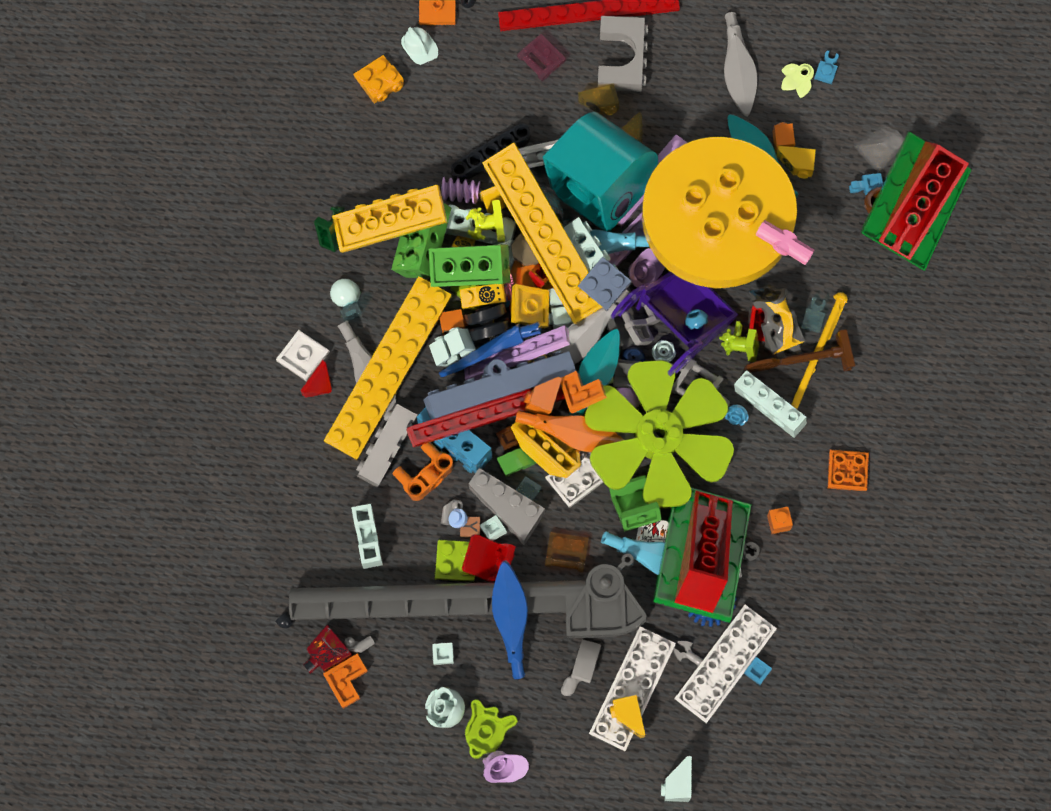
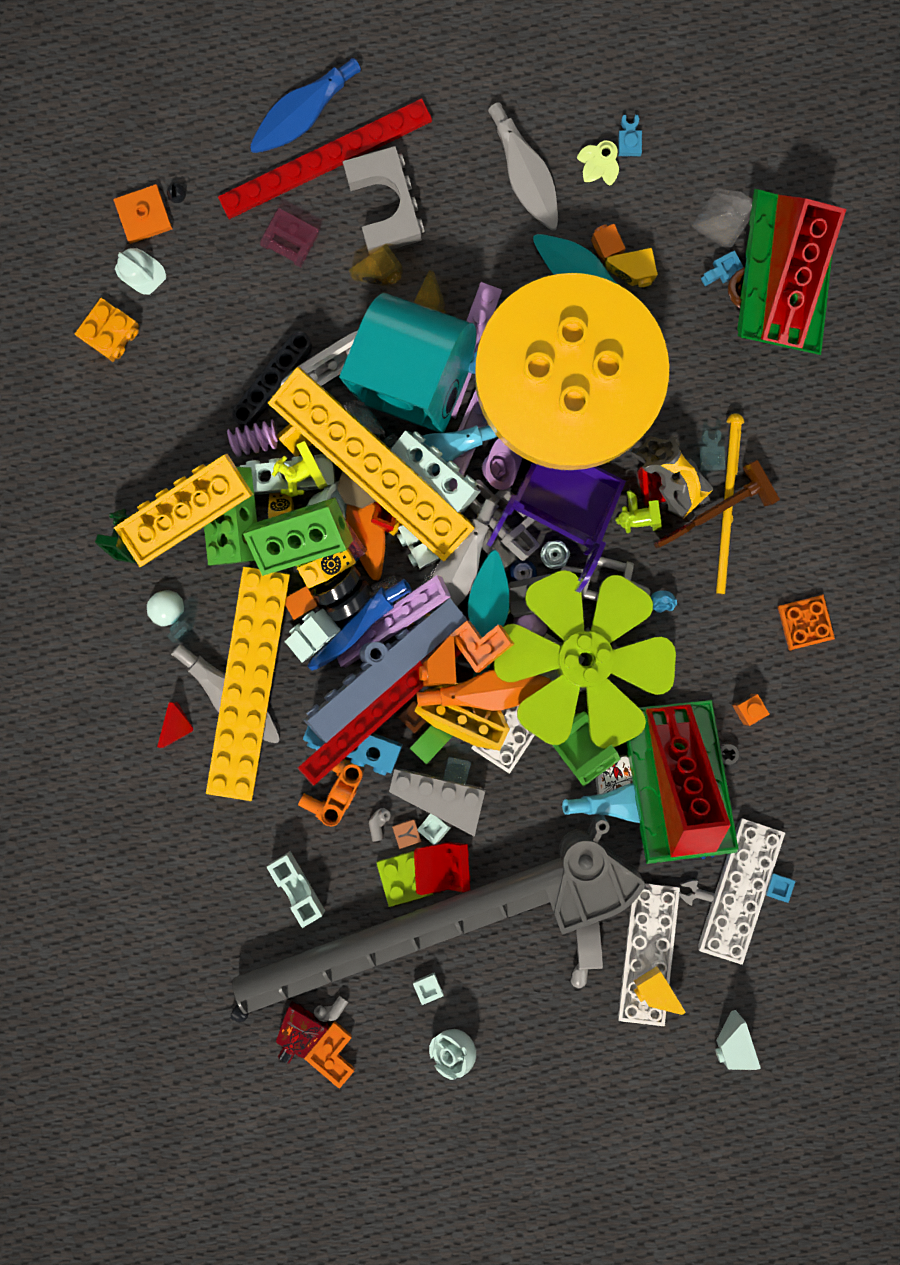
camera: 20 degrees left, 15 degrees up
(302, 355) = (144, 700): white plate -> none
(388, 443) = (279, 777): light grey wedge -> none
(458, 518) = (390, 832): light blue plate -> none
(486, 730) = (504, 1054): lime tile -> none
(504, 767) = (536, 1091): lavender piece -> none
(510, 615) = (490, 931): blue animal -> none
(530, 305) = (385, 557): yellow plate -> none
(567, 545) = (524, 817): clear orange plate -> none
(604, 283) = (465, 505): sand blue plate -> none
(696, 319) = (581, 506): dark azure plate -> none
(770, 404) = (698, 578): light aqua brick -> none
(785, 242) = (666, 388): bright pink piece -> none

